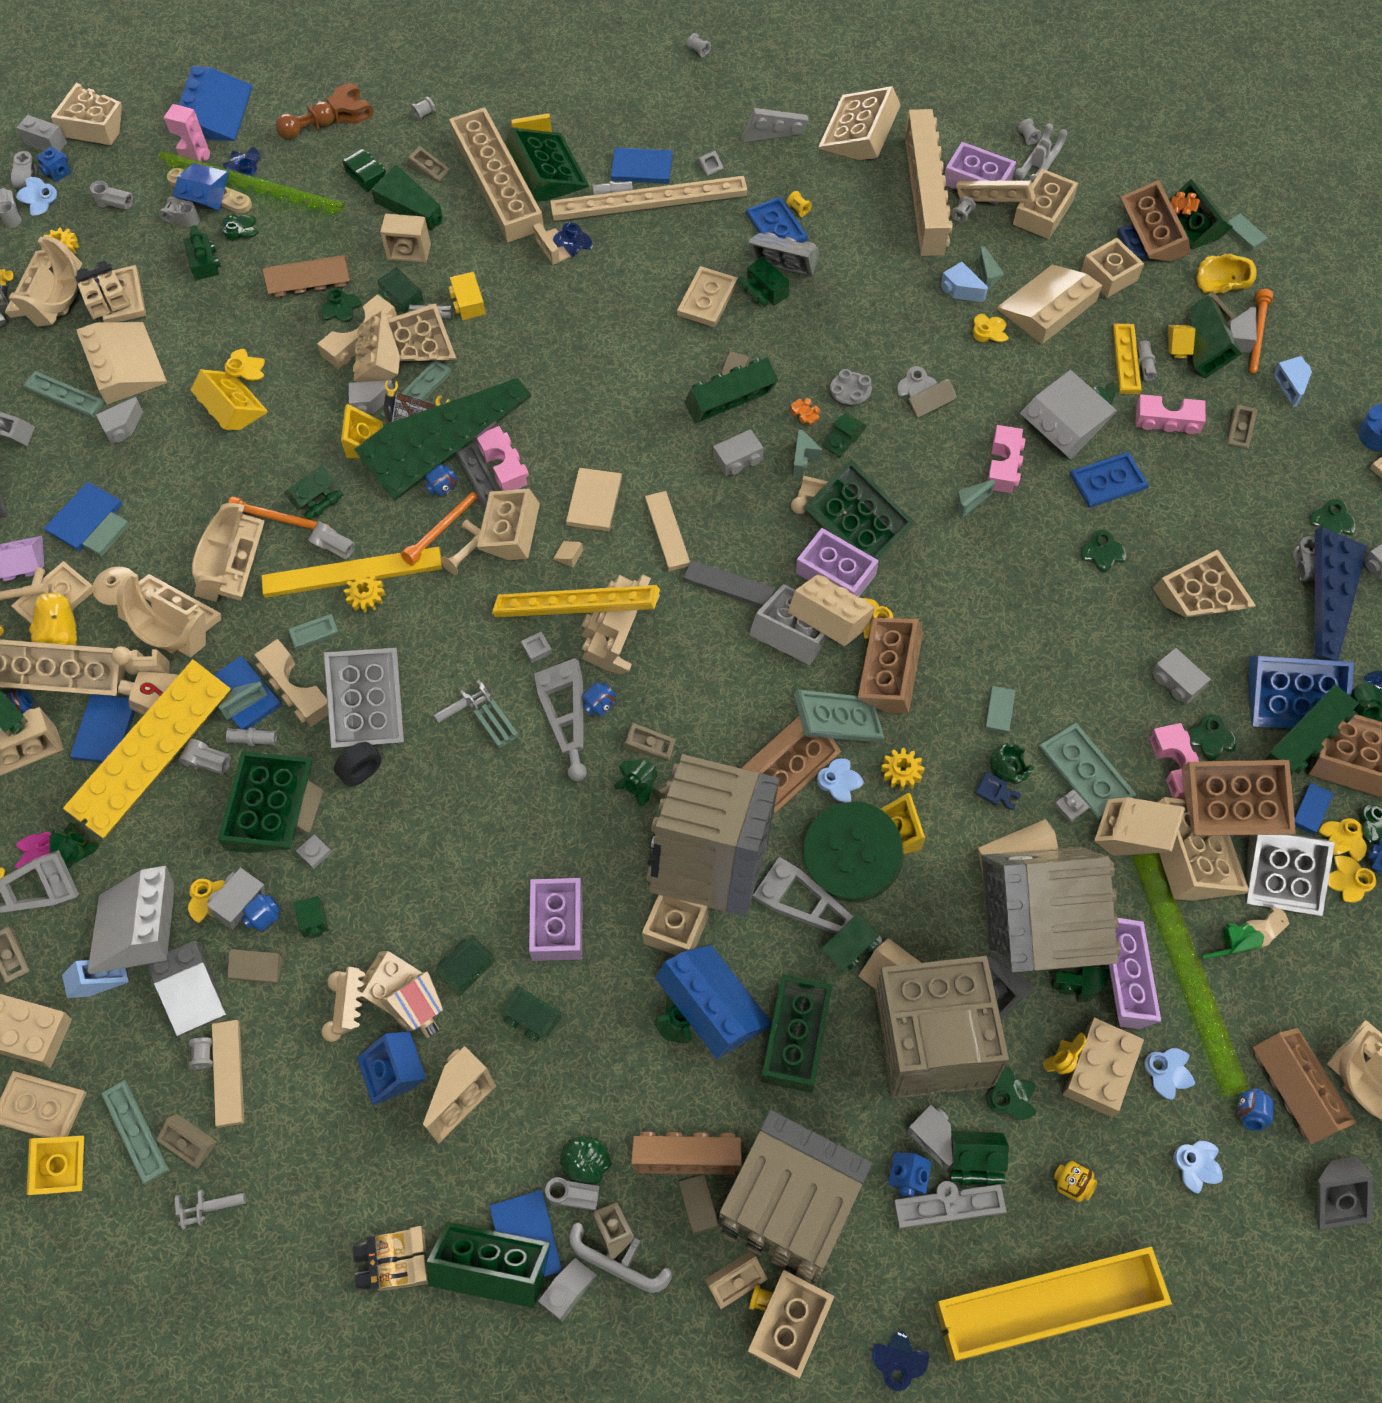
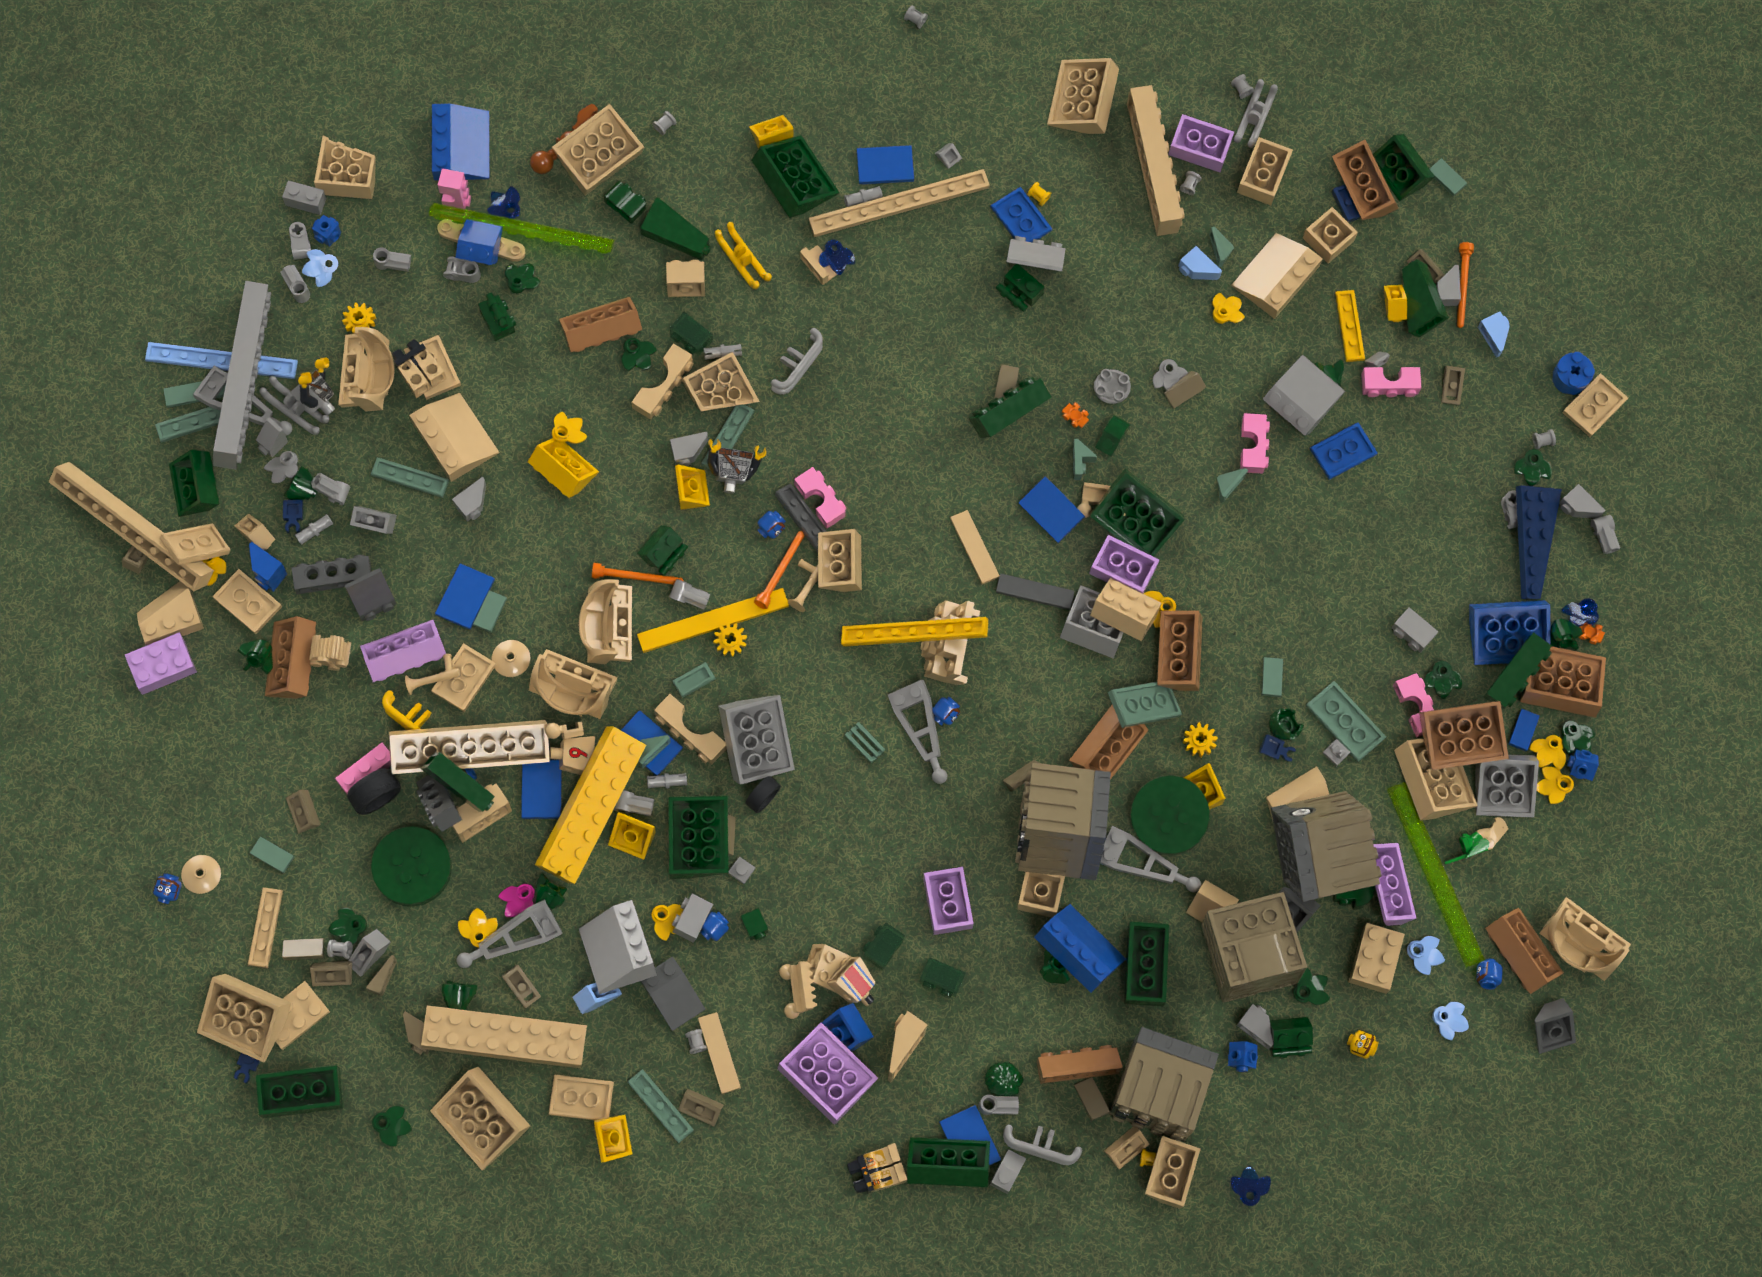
camera: 15 degrees left, 10 degrees up
(55, 629) = (474, 702): yellow piece -> none
(191, 792) = (631, 835): none -> yellow slope
(207, 1206) = (730, 1151): light grey piece -> none
(254, 966) = (718, 969): dark tan slope -> none
(346, 119) = (598, 149): none -> tan slope
(354, 1118) = (827, 1073): none -> lavender slope
(376, 350) = (688, 406): tan slope -> none
(418, 443) = (750, 492): dark green wing -> none
(427, 164) = (682, 187): dark tan slope -> none
(464, 702) = (835, 727): light grey piece -> none
(467, 296) = (753, 332): yellow piece -> none
(472, 228) = (741, 256): none -> yellow piece
(496, 174) = (752, 195): tan brick -> none
(510, 332) = (798, 369): none -> light grey piece
(536, 647) = (885, 670): light grey plate -> none
(569, 553) = (894, 579): tan slope -> none
(594, 499) = (906, 524): tan tile -> none
(613, 1229) = (1034, 1125): dark tan slope -> none
(638, 779) = (990, 776): dark green brick -> none
(647, 742) = (991, 742): dark tan slope -> none
(707, 296) = (971, 305): tan plate -> none
(738, 453) = (1024, 465): light grey brick -> none
(762, 500) = (1051, 509): none -> blue tile
(773, 124) = (1003, 107): light grey wing -> none
(843, 780) = (1154, 754): light blue plate -> none
(851, 942) = (1178, 888): dark green piece -> none
(949, 1205) = (1273, 1074): light grey hinge -> none
(996, 191) = (1218, 166): tan tile -> none
(1052, 1304) = (1353, 1132): yellow piece -> none
(1066, 1056) = (1348, 954): yellow plate -> none
(1103, 553) = (1344, 524): dark green plate -> none
(1138, 826) = (1389, 767): tan slope -> none
(1147, 360) = (1367, 327): light grey pin -> none
(1159, 391) = (1377, 359): none -> light grey slope
(1187, 204) = (1392, 160): orange piece -> none
(1203, 588) = (1428, 550): tan wedge -> none
(1217, 273) = (1423, 230): yellow piece -> none
(1348, 491) = (1544, 439): none -> light grey bush

